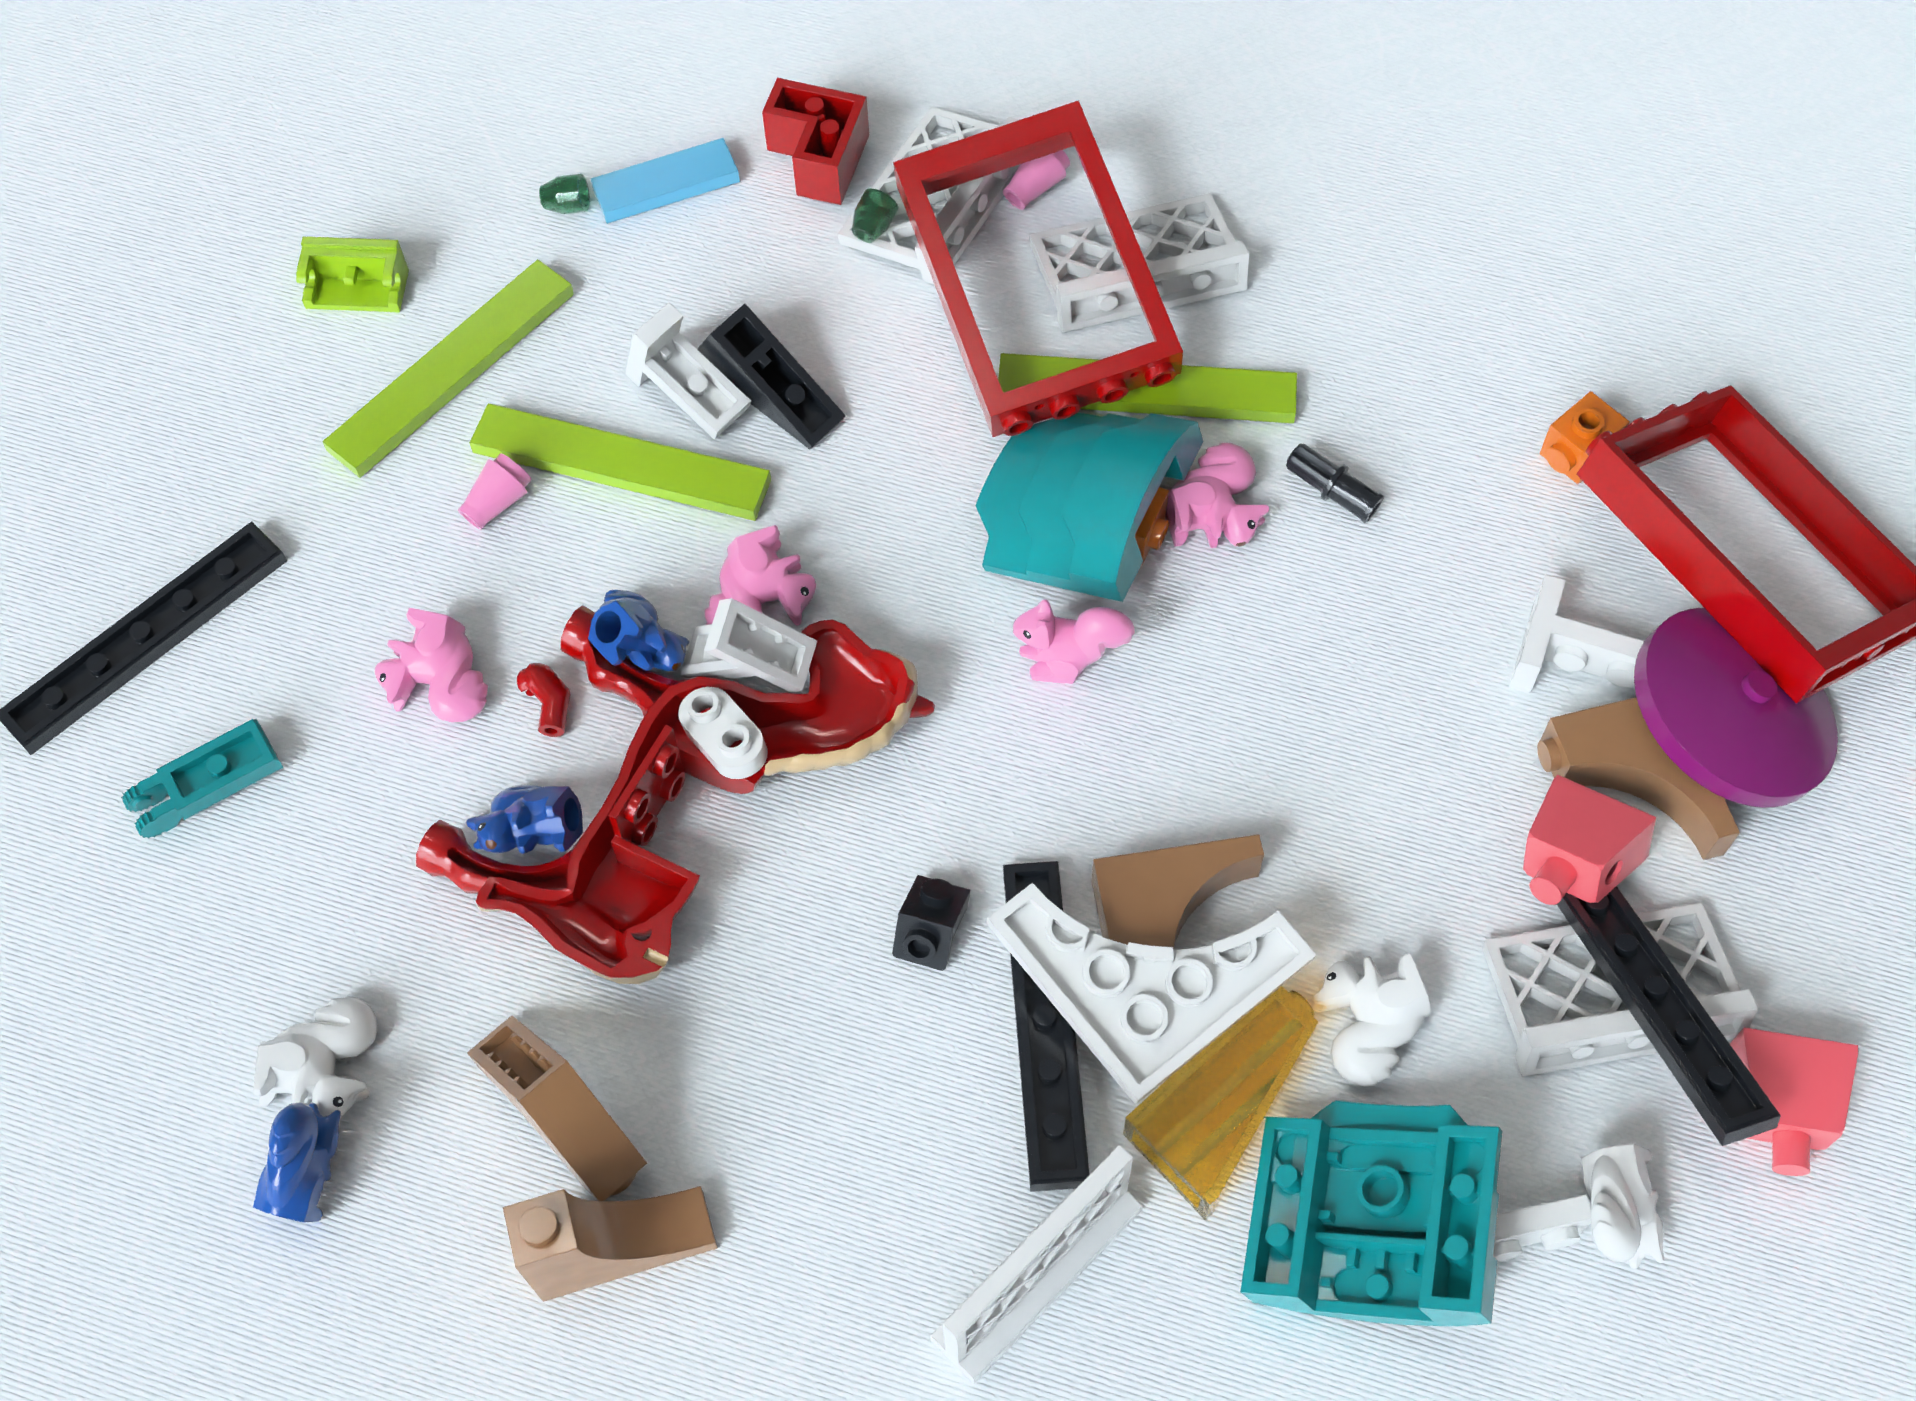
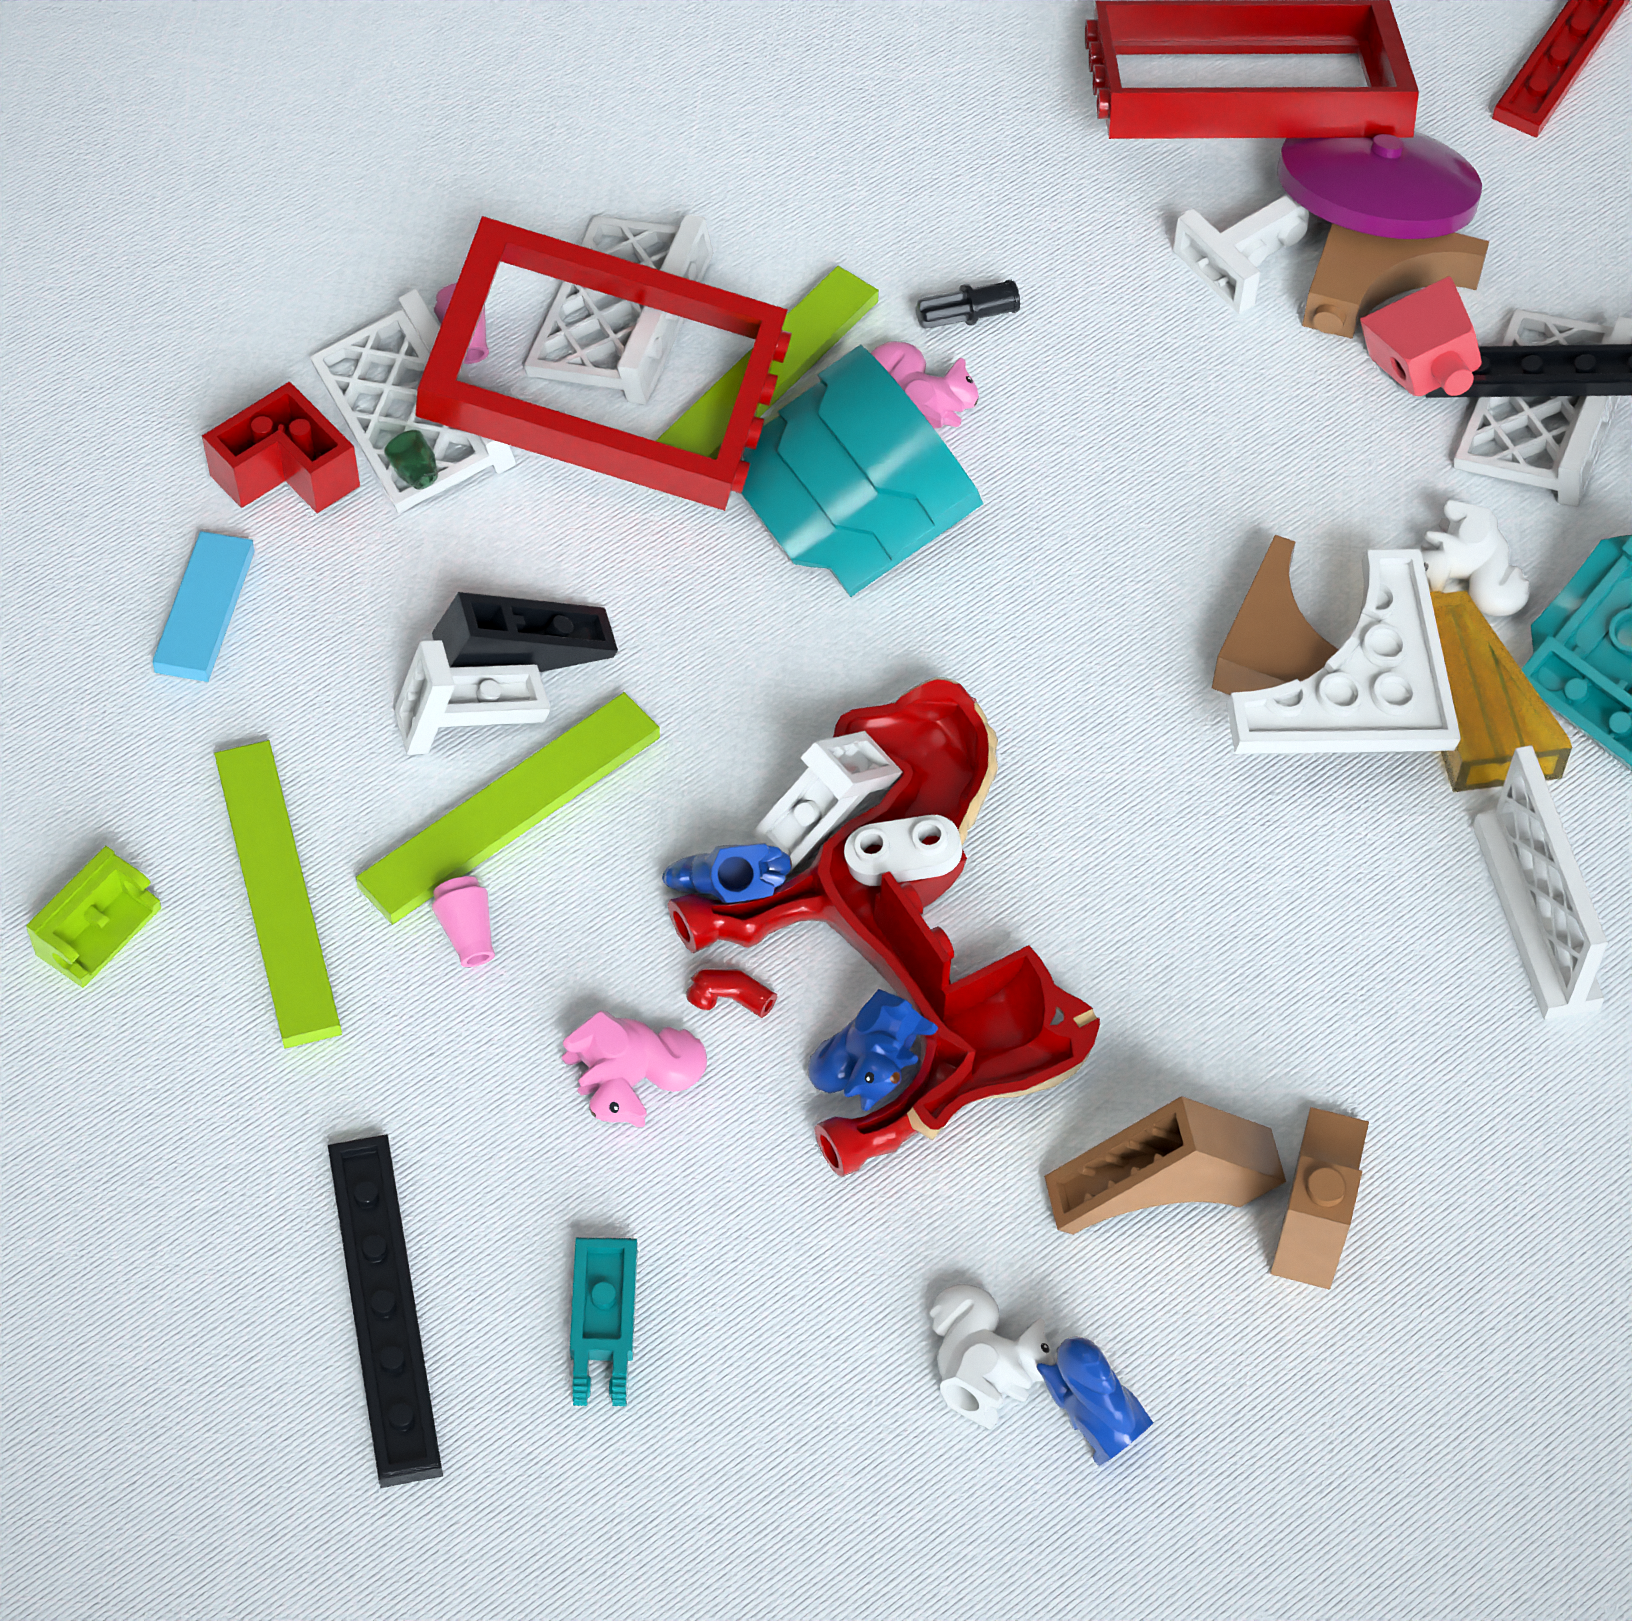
camera: 60 degrees left, 5 degrees down
(565, 194) = (150, 692): clear green hose -> none
(757, 575) = (734, 763): bright pink animal -> none
(929, 922) = (1180, 810): black bracket -> none
(1046, 1060) = (1335, 788): black tile -> none
(1069, 645) = (988, 571): bright pink animal -> none
(1575, 430) = (1059, 132): orange brick -> none

